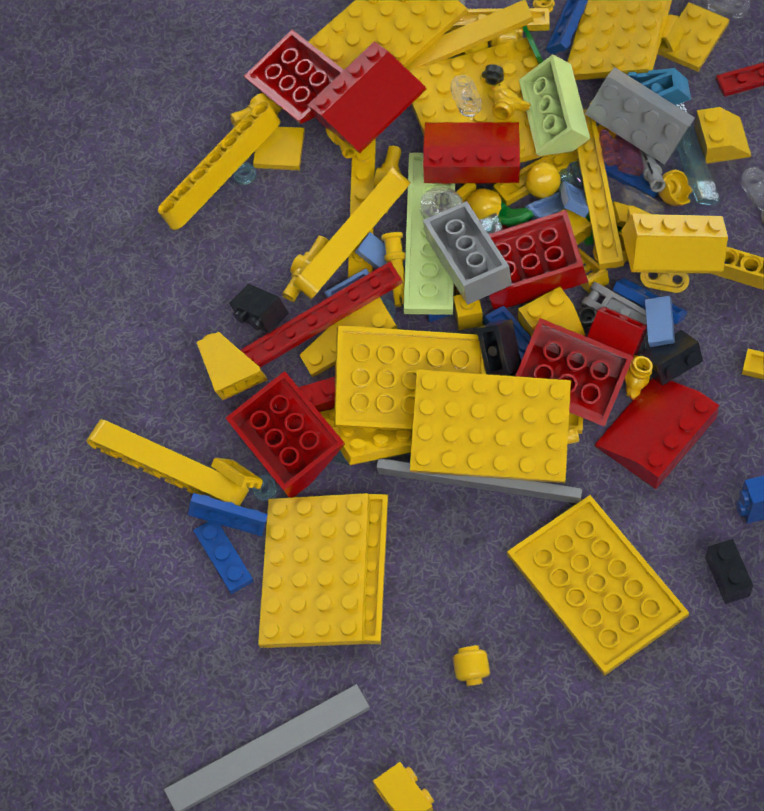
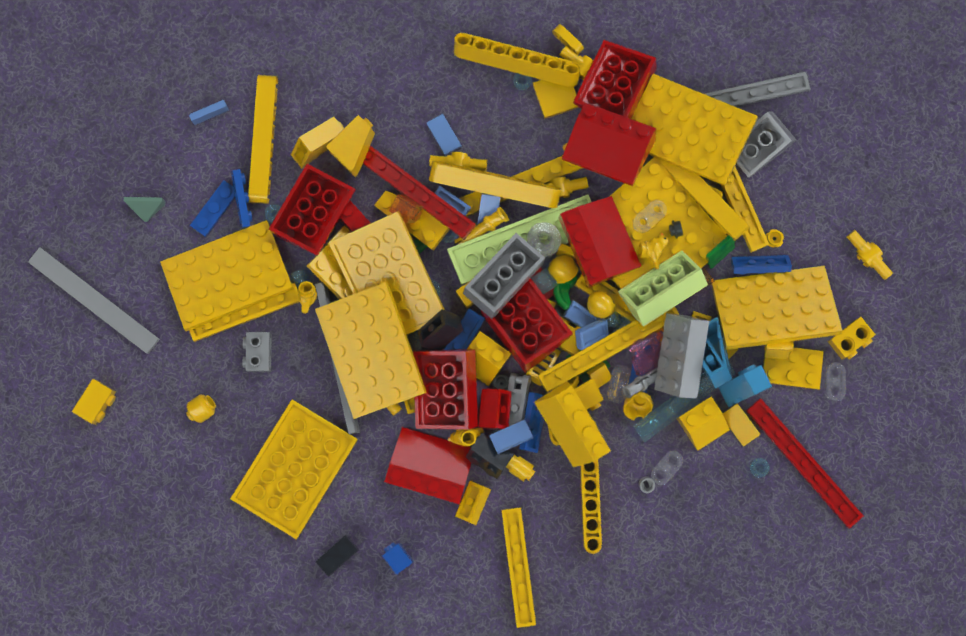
camera: 60 degrees right, 20 degrees up
(100, 513) = (208, 112): none -> medium blue tile
(177, 637) = (145, 206): none -> sand green slope
(203, 406) = (314, 142): none -> yellow slope
(220, 112) = (567, 39): none -> yellow beam
(237, 473) = (271, 188): yellow tile -> none
(258, 308) = (407, 144): black brick -> none
(265, 273) = (443, 134): none -> medium blue tile
(329, 326) = (408, 208): none -> clear orange brick
(358, 486) = (298, 277): none -> clear light blue plate
(386, 480) = (307, 295): none -> yellow animal
(429, 569) = (257, 351): none -> light grey brick
(699, 67) = (748, 383): none -> dark azure wedge
(703, 330) = (520, 468): none -> yellow brick
(730, 408) = (472, 502): none -> yellow slope
(740, 101) = (740, 425): none -> yellow slope

